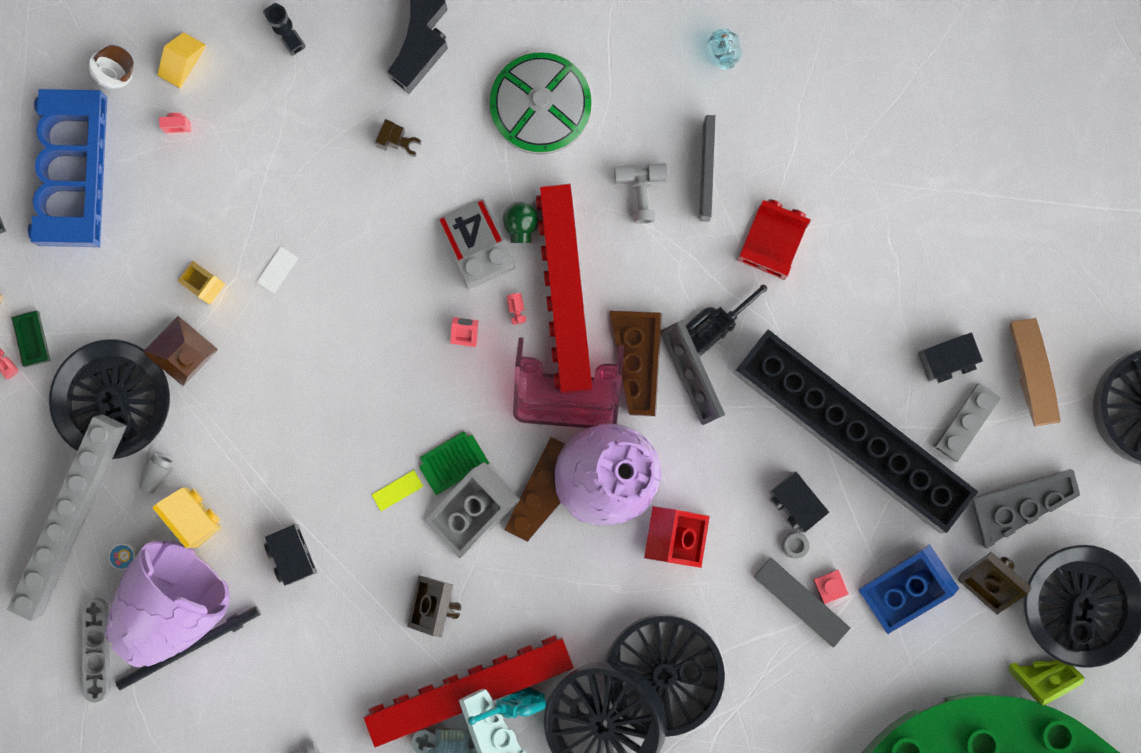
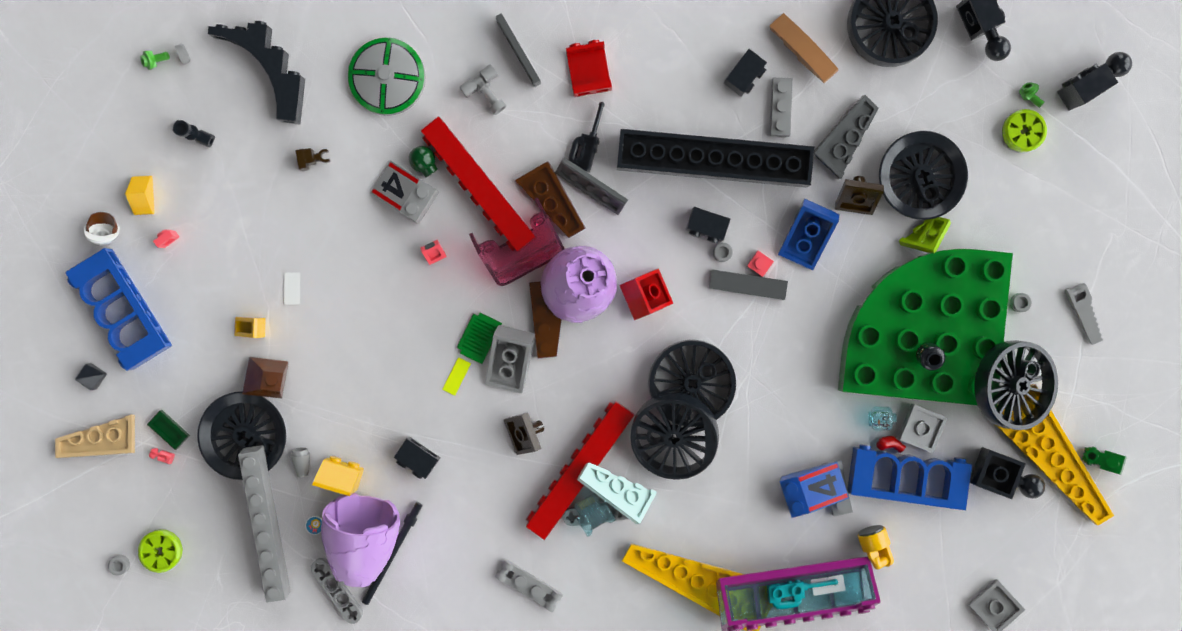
camera: 30 degrees left, 5 degrees up
(515, 306) = (455, 215): coral piece -> none
(521, 703) = (616, 456): teal piece -> none

